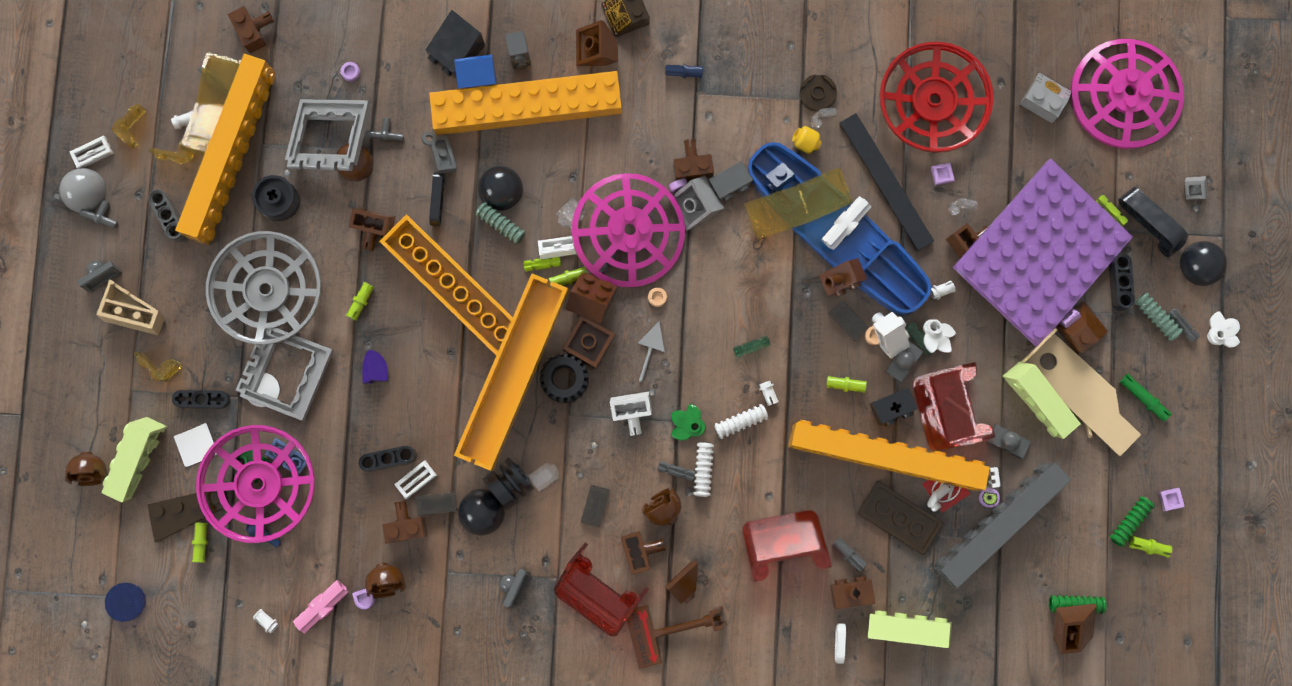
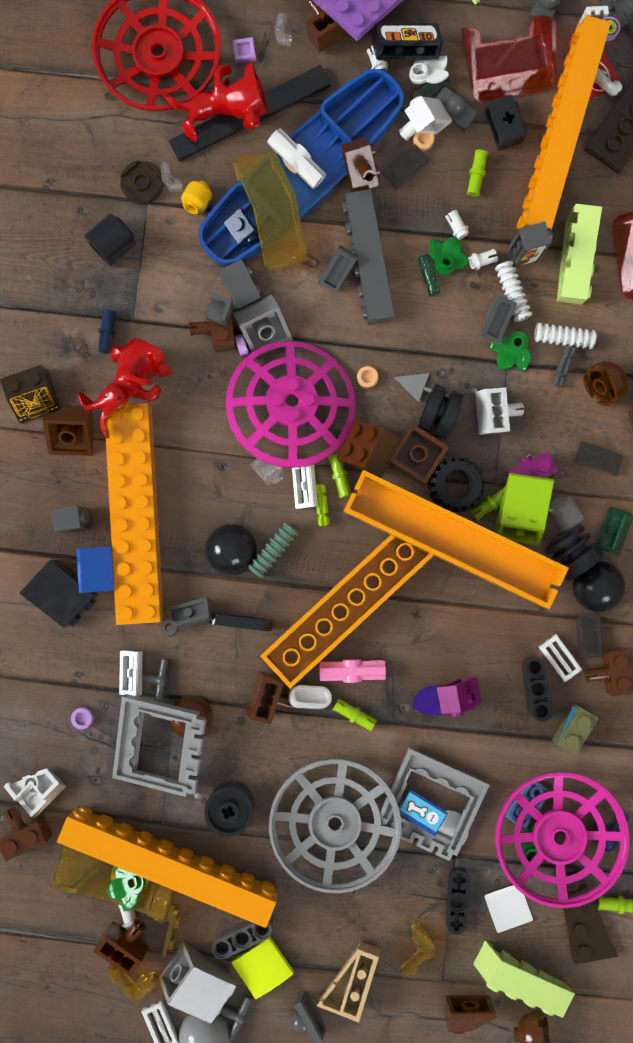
camera: 85 degrees left, 5 degrees up
(104, 409) = (468, 1012): none -> reddish brown slope
(126, 179) = (196, 984): none -> slope
(141, 234) = (262, 967): none -> neon yellow slope
(157, 115) = (123, 947): none -> reddish brown brick
(206, 114) = (124, 888): none -> plate
(276, 363) = (422, 812): none -> slope
(287, 37) = (36, 791): none -> white slope
(352, 493) = (574, 729): none -> olive brick
(374, 261) = (309, 697): none -> white tile
(377, 388) = (459, 696): none -> magenta brick
(385, 110) = (134, 672): none -> white tile
(398, 296) = (352, 670): none -> bright pink piece
(530, 523) = (614, 531): none -> clear green slope
(543, 435) = (524, 508): none -> lime slope
(550, 411) = (490, 504): none -> lime pin
(579, 443) = (539, 467): none -> magenta brick
(627, 359) = (443, 412): none -> black wheel
(653, 95) = (135, 367): none -> red animal
(703, 162) = (219, 309): none -> dark grey panel
(713, 406) = (497, 319): none -> dark grey tile
(749, 264) = (338, 269): none -> dark grey tile
(763, 68) = (110, 239): none -> black piece
(763, 291) = (370, 261): none -> dark grey brick
(773, 362) = (449, 253): none -> green plate
(776, 476) = (578, 253): none -> yellowish green wedge
(779, 429) = (530, 244): none -> dark grey brick
(798, 368) = (457, 225): none -> white pin
(891, 172) = (242, 100): none -> red animal
(958, 313) = (407, 41): none -> black brick

